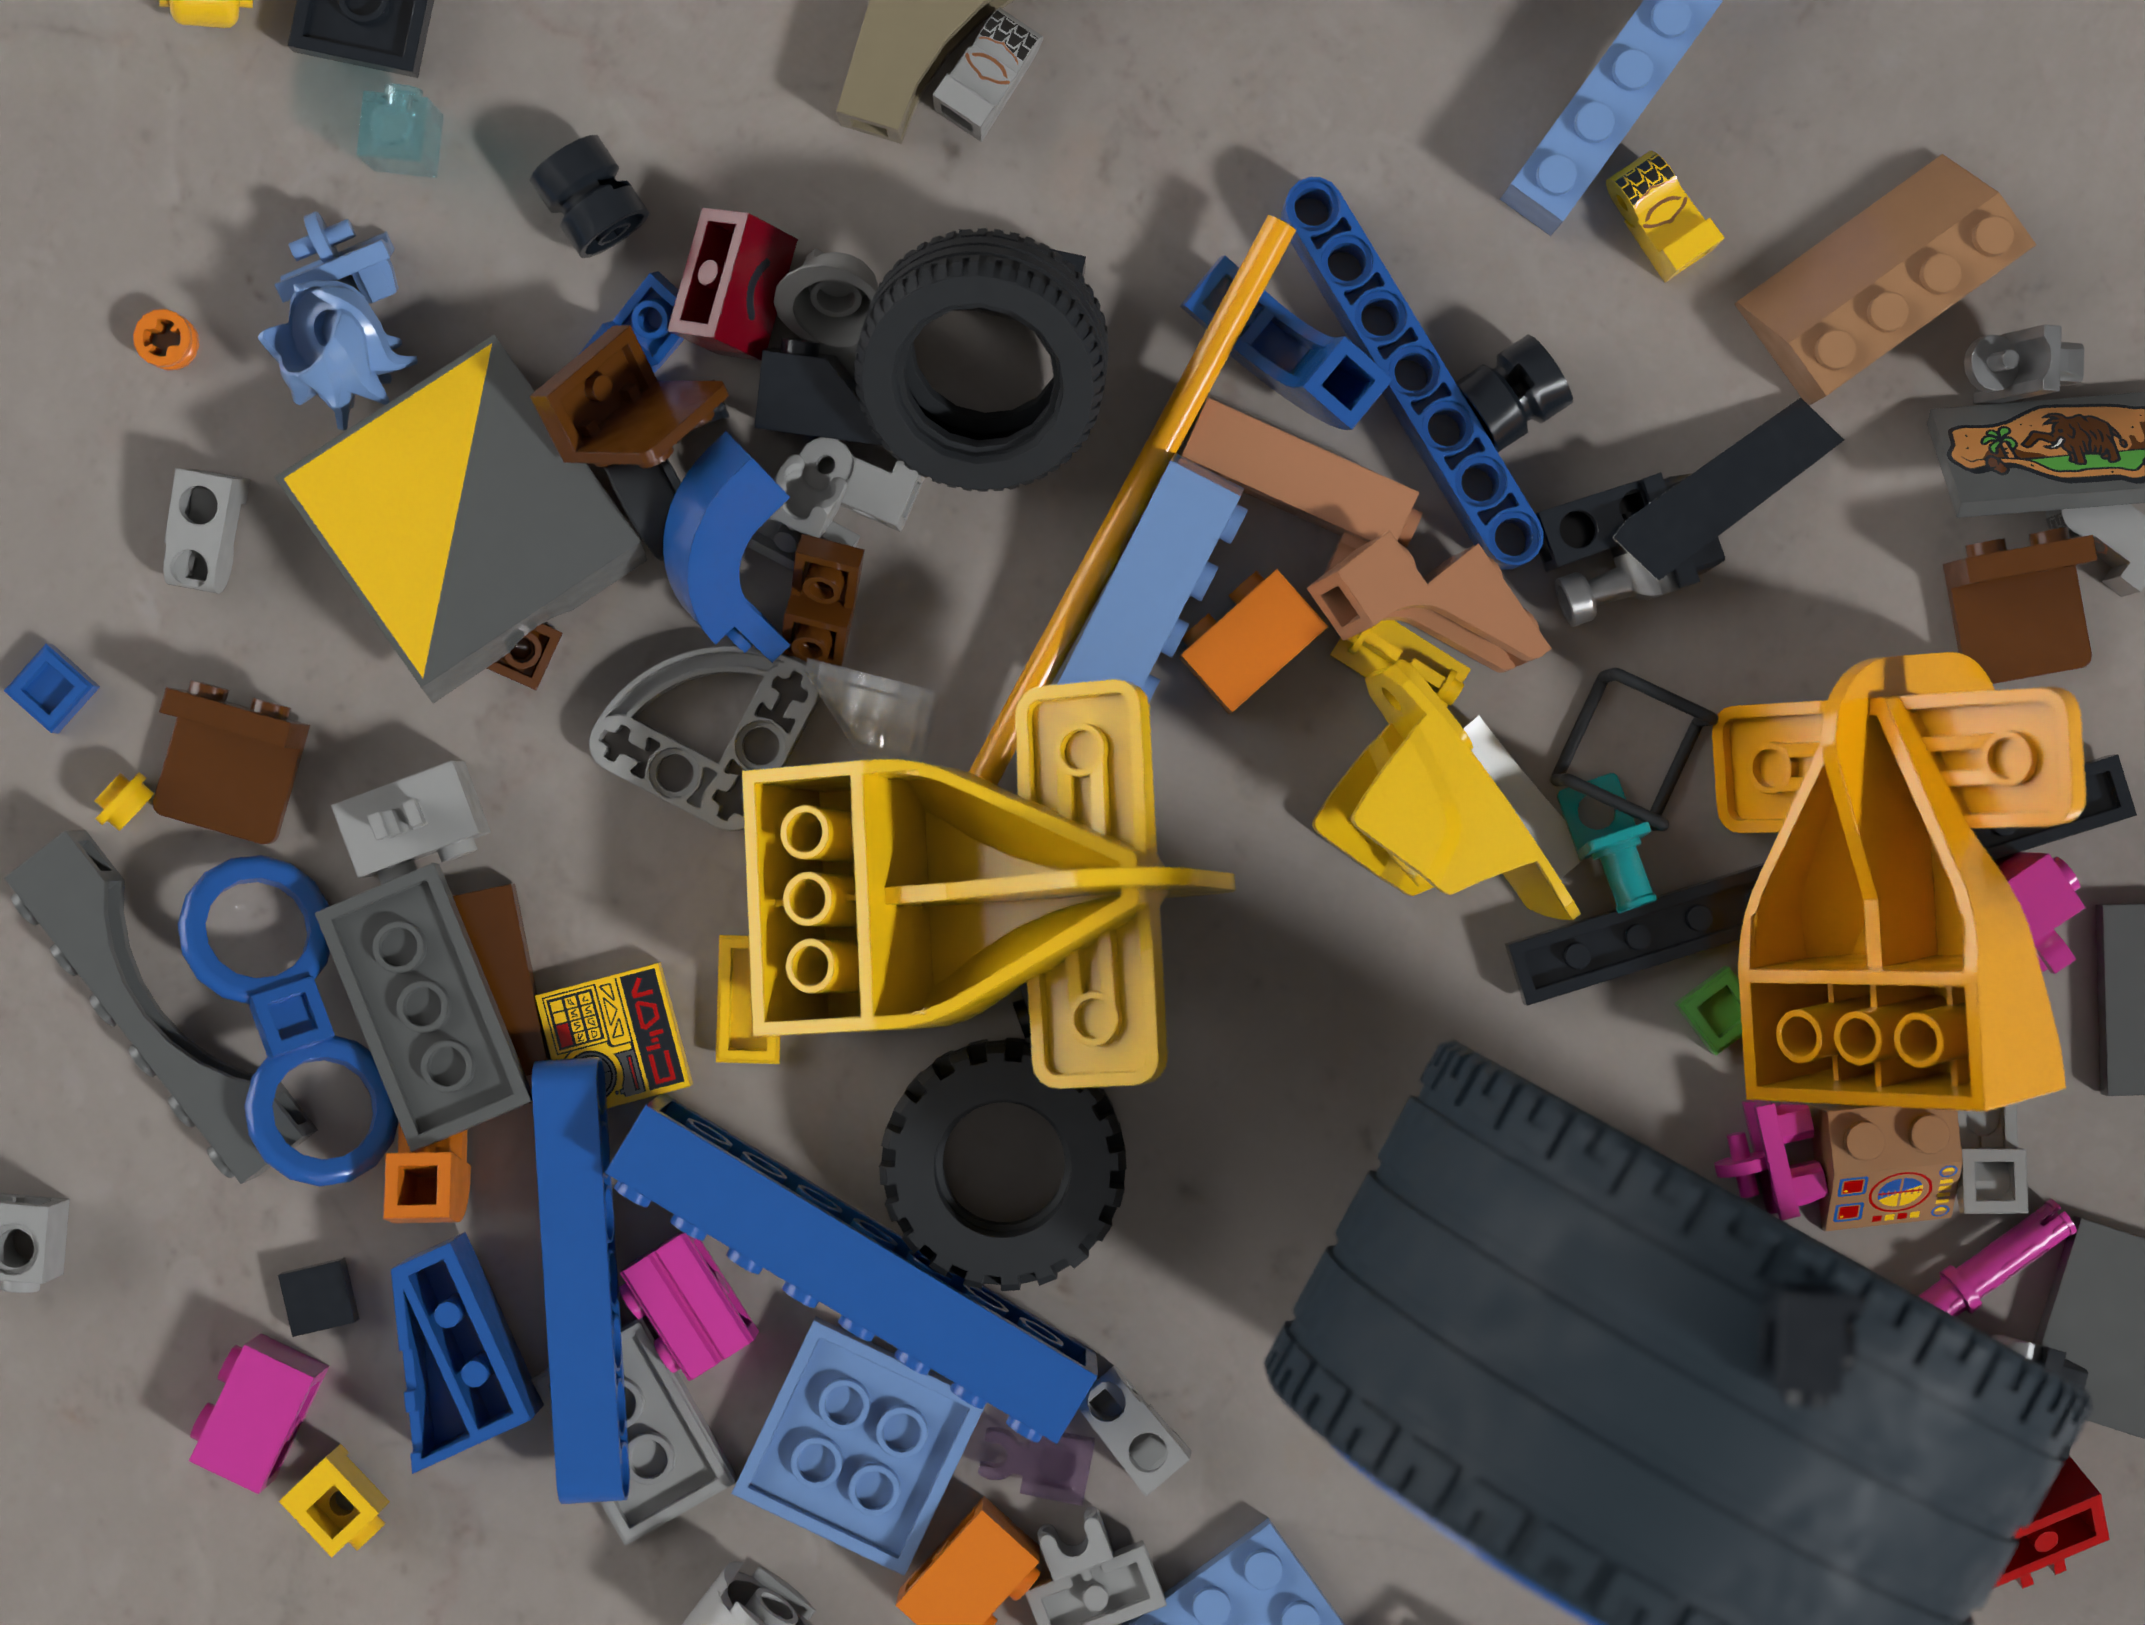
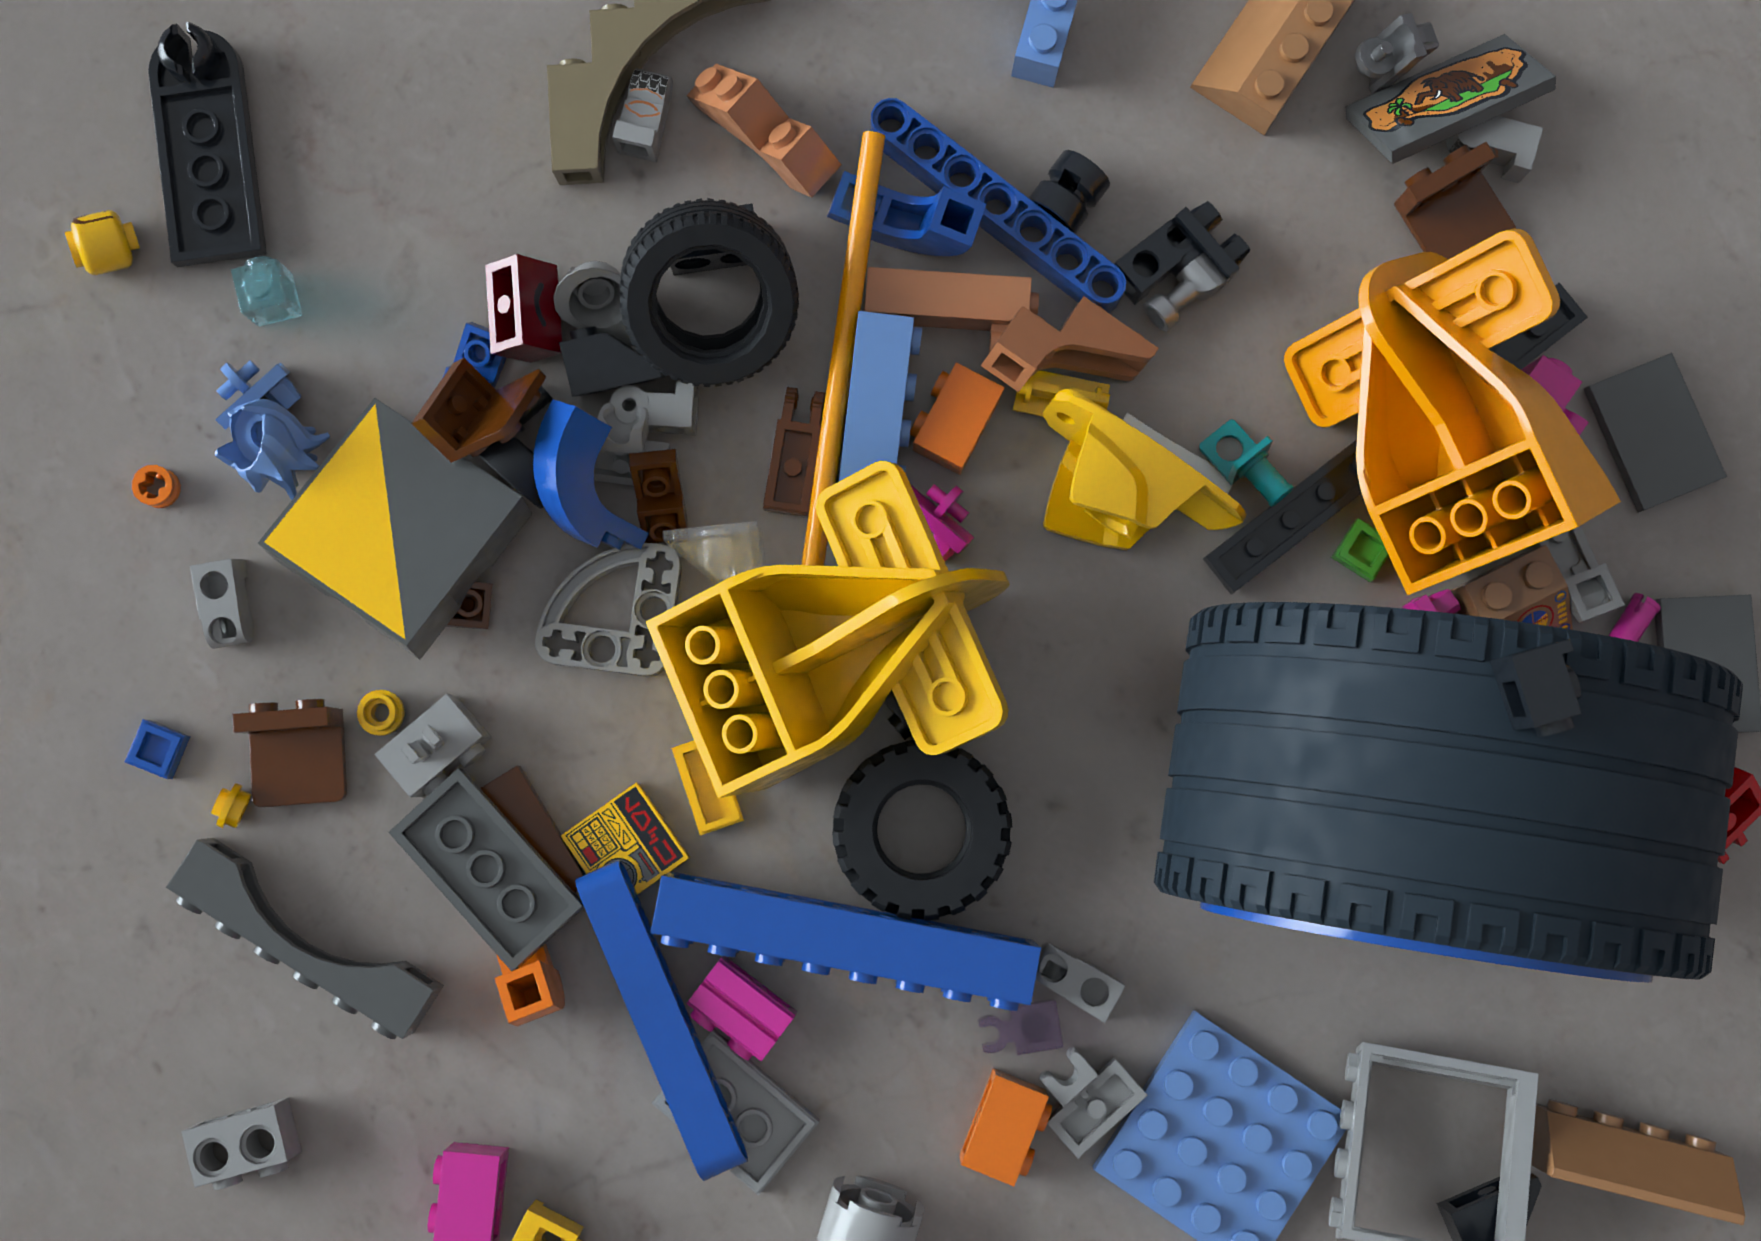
camera: 15 degrees left, 5 degrees down
(288, 1020) = (396, 914): blue bar -> none
(318, 1297) = (484, 1101): black tile -> none
(339, 743) = (367, 708): none -> yellow plate
(457, 1354) = (594, 1103): blue wedge -> none
(584, 188) = (399, 282): black wheel -> none
(858, 1447) = (895, 1064): medium blue plate -> none
(1018, 612) = (794, 458): none -> reddish brown hinge
(1141, 153) = (756, 119): none -> nougat arch
(1182, 767) = (948, 534): none -> dark pink hips
(1662, 215) = (1121, 46): yellow leg -> none
(1702, 718) = (1198, 431): black piece -> none
(1726, 489) = (1232, 203): black sticker -> none

